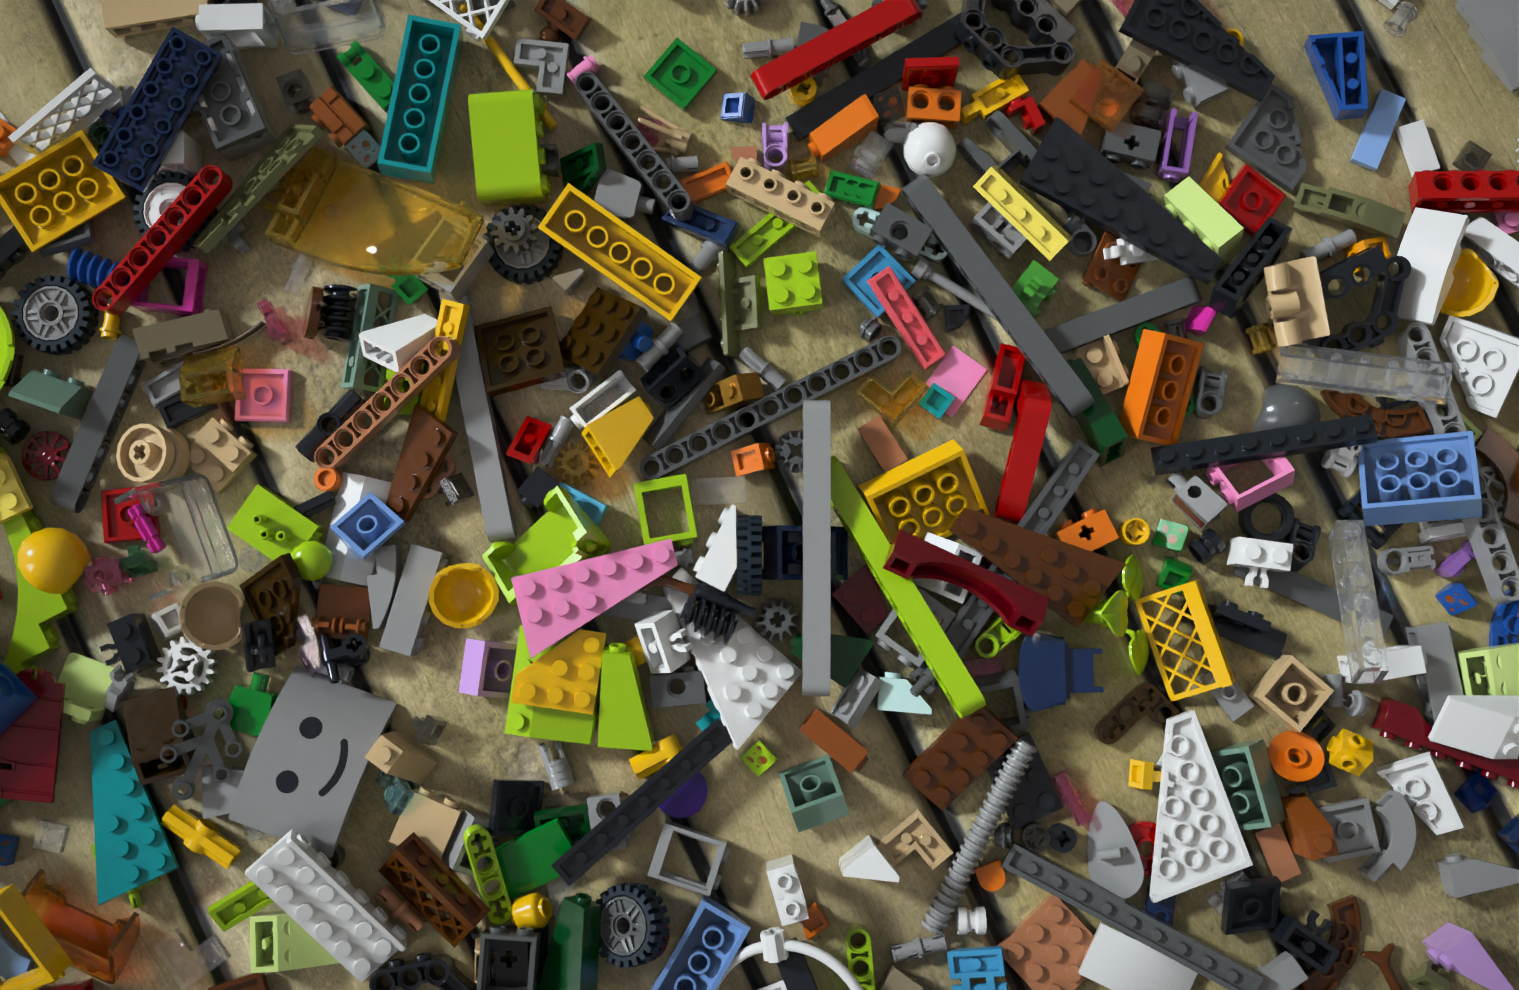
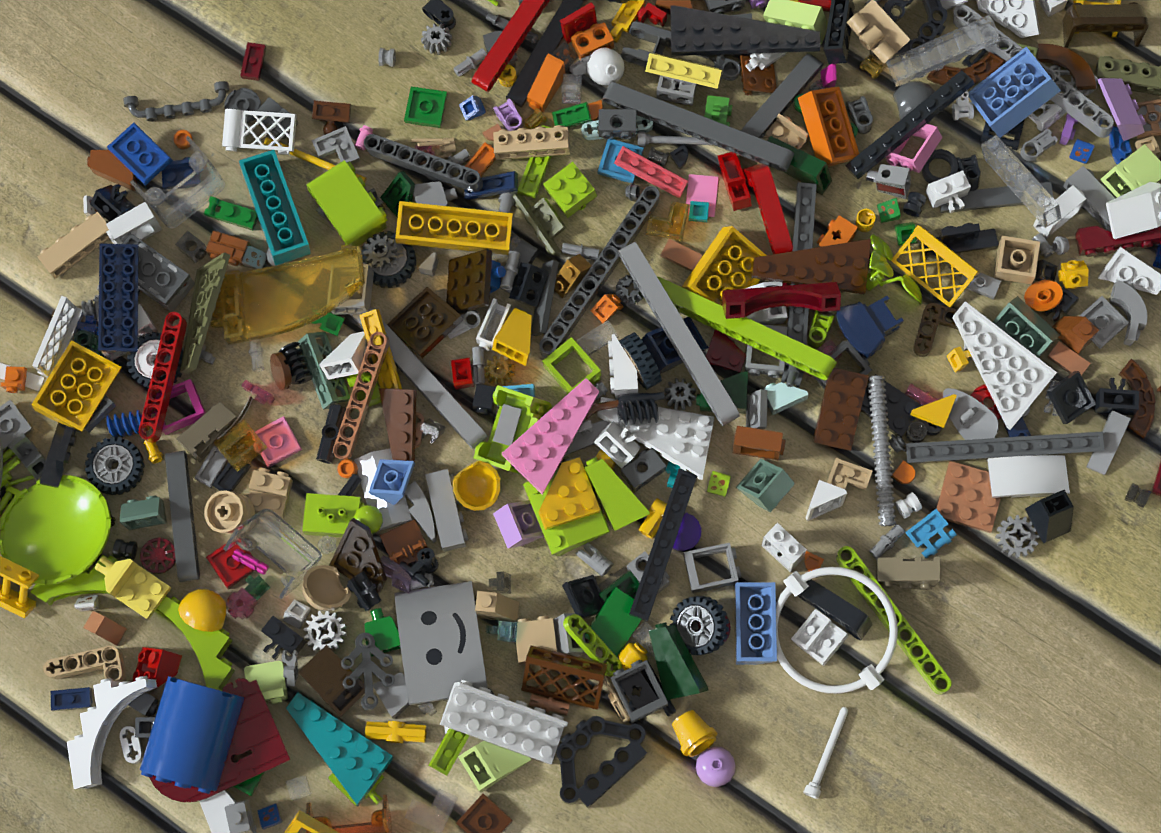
camera: 25 degrees left, 10 degrees down
(546, 538) = (507, 424): none -> light grey tile
(1075, 829) = (935, 412): none -> yellow tile

